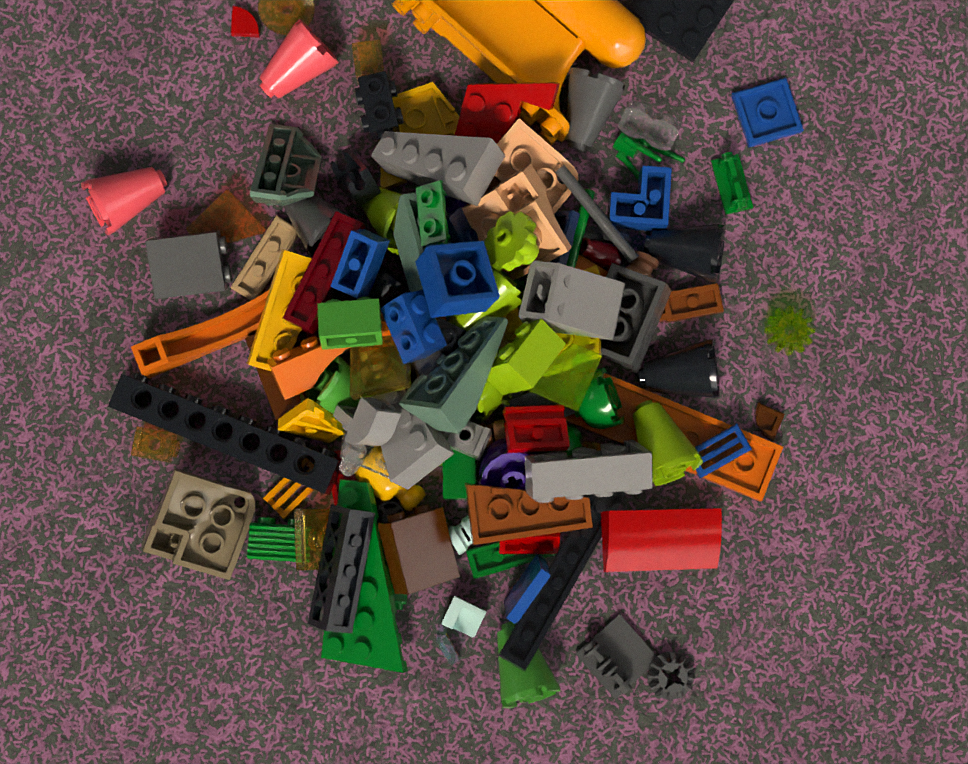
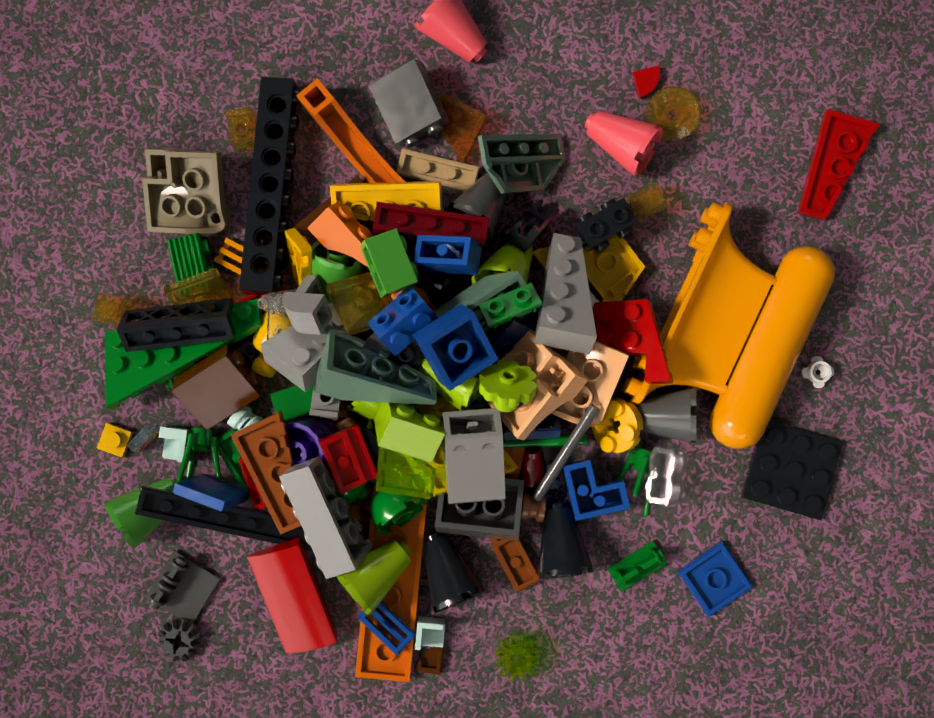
camera: 75 degrees right, 5 degrees up
(302, 640) = (110, 309): none -> clear yellow brick
(439, 682) = (115, 440): none -> yellow plate
(470, 590) = (198, 441): none -> green plant
(594, 146) = (629, 430): none -> yellow plate
(738, 410) = (430, 632): none -> light aqua panel

